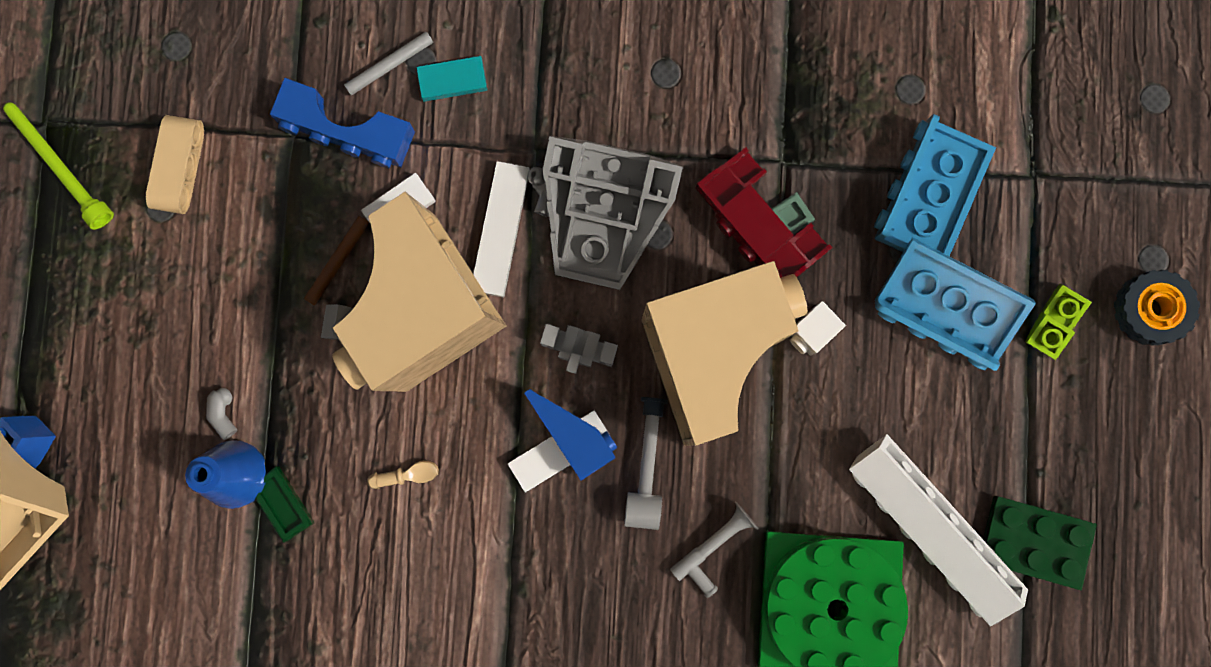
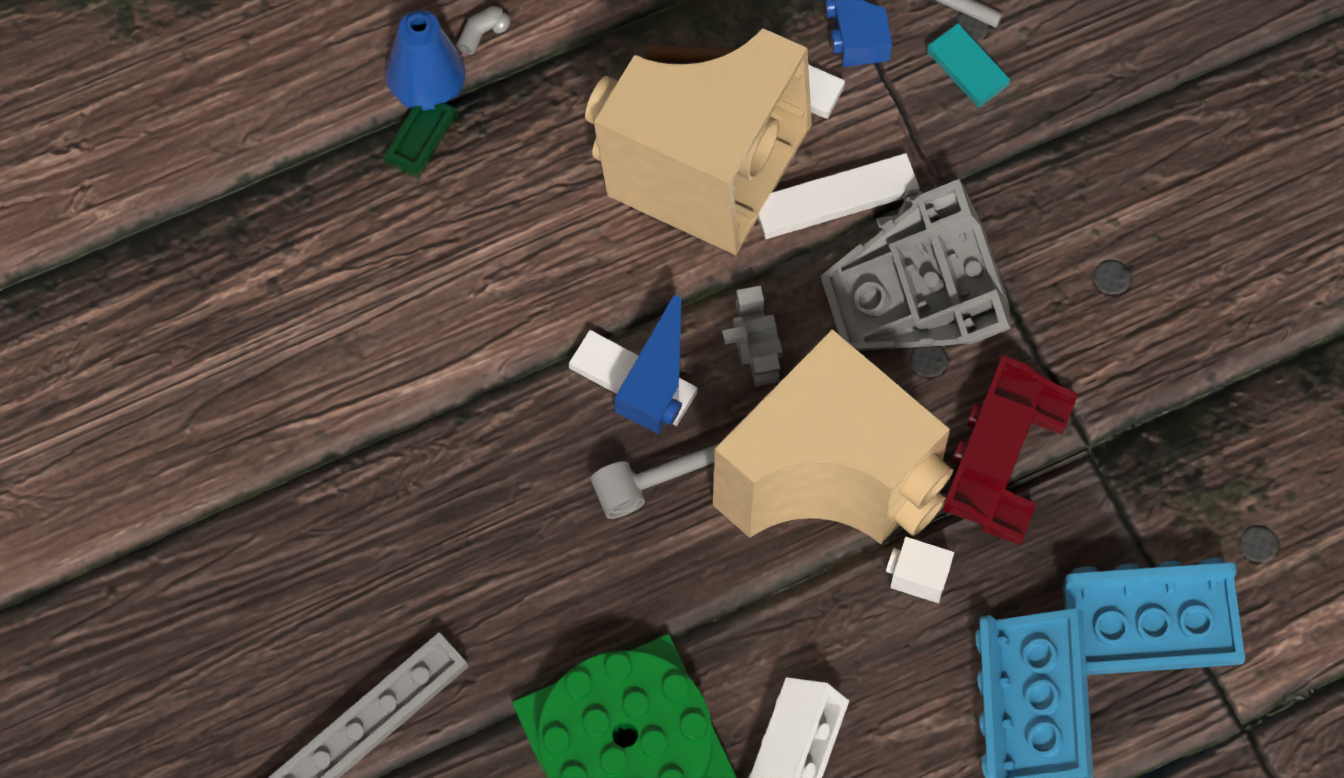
camera: 65 degrees right, 15 degrees down
(419, 472) = (529, 249): tan piece -> none
(690, 562) = (585, 571): light grey piece -> none
(794, 213) = (1035, 483): sand green tile -> none

